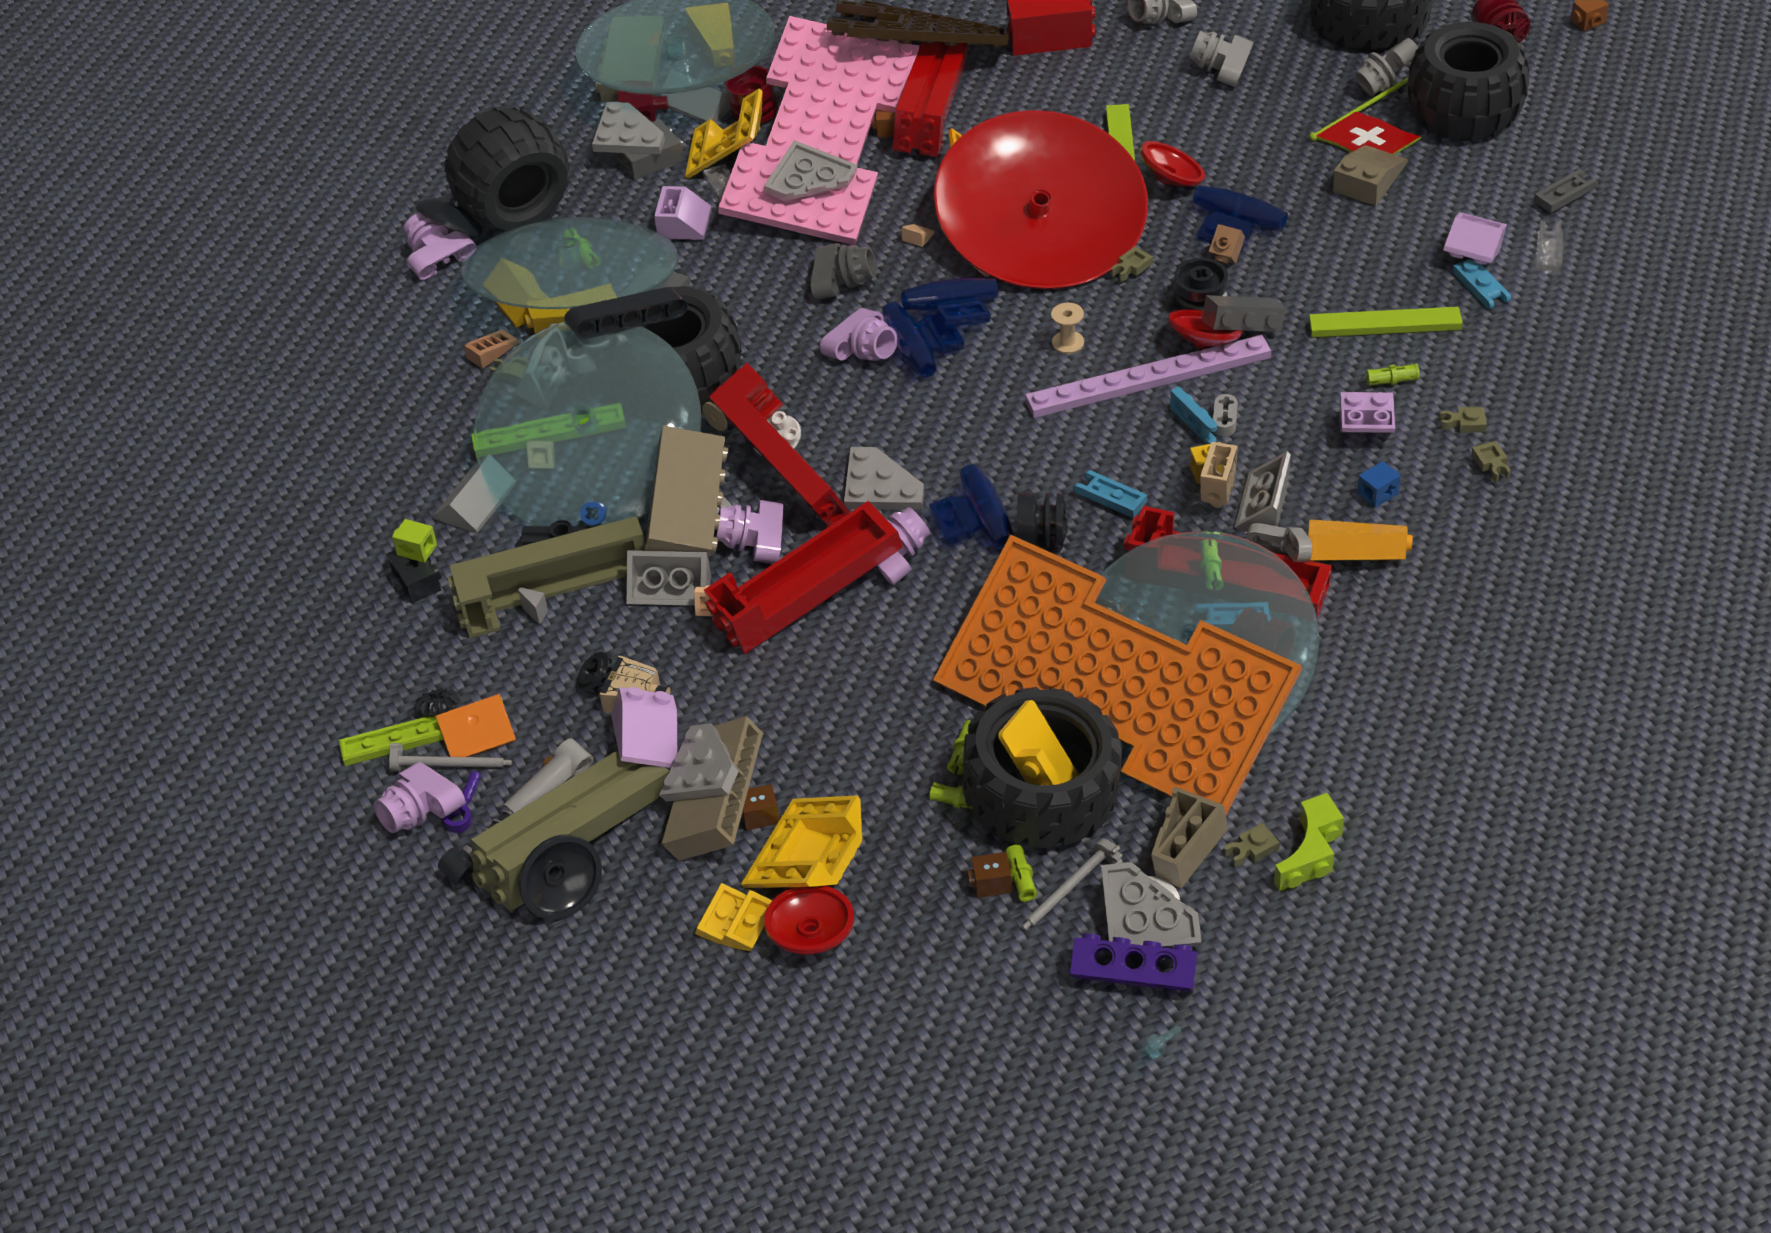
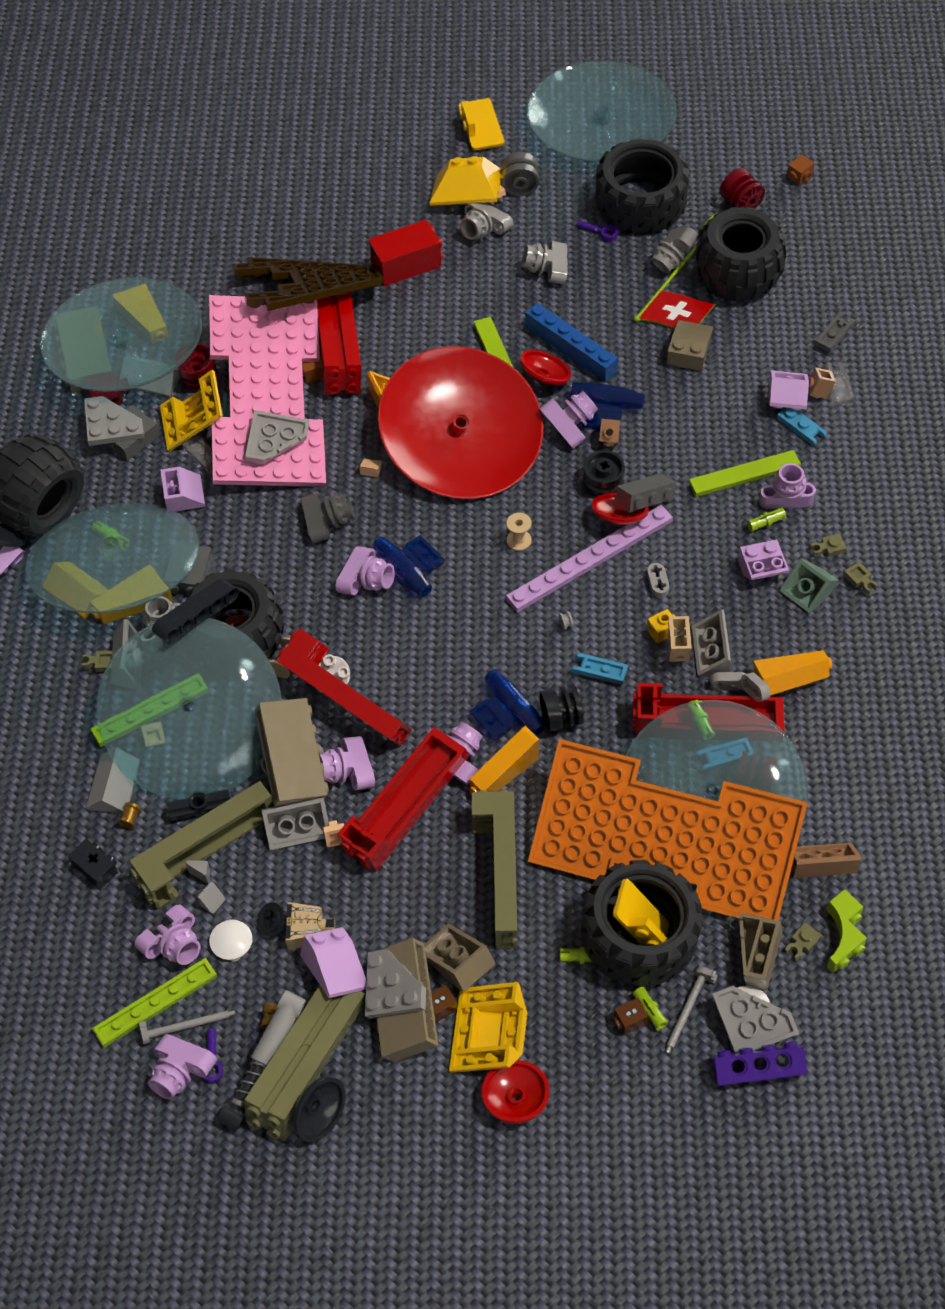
camera: 20 degrees left, 10 degrees up
(414, 540) = (88, 841): lime brick -> none
(437, 702) = (160, 980): black gear -> none
(471, 668) = (175, 941): none -> lavender beam
(476, 727) = (197, 990): orange piece -> none
(477, 532) = (129, 815): none -> pearl gold bush
(484, 350) = (70, 655): nougat slope -> none
(534, 636) = (211, 898): none -> light grey slope
(539, 686) = (230, 940): none -> white dish
(585, 512) = (220, 787): blue bush -> none
(734, 918) = (456, 1101): yellow slope -> none
(802, 762) = (458, 957): none -> dark tan slope
(881, 482) = (424, 697): light grey plate -> none
(911, 630) = (495, 815): none -> olive brick
(947, 569) = (507, 763): none -> light orange slope
(954, 300) = (425, 525): clear blue plate -> none
(958, 751) = (570, 912): lime pin -> none
(1089, 434) = (566, 620): none -> light grey bush
(1132, 262) = (544, 460): olive plate -> none
(1156, 1044) = (793, 1124): clear light blue hand -> none
(1182, 218) = (565, 420): none -> lavender beam
(1193, 415) = (637, 587): dark azure hinge -> none
(1218, 145) = (571, 342): none -> blue brick
(1308, 40) = (608, 228): none -> dark purple piece
(1315, 762) = (825, 860): none -> medium nougat slope
(1379, 484) = (789, 617): blue brick -> none
(1419, 454) = (808, 585): none -> sand green slope
(1431, 343) = (788, 489): none -> lavender beam
(1521, 239) = (821, 383): none -> medium nougat brick

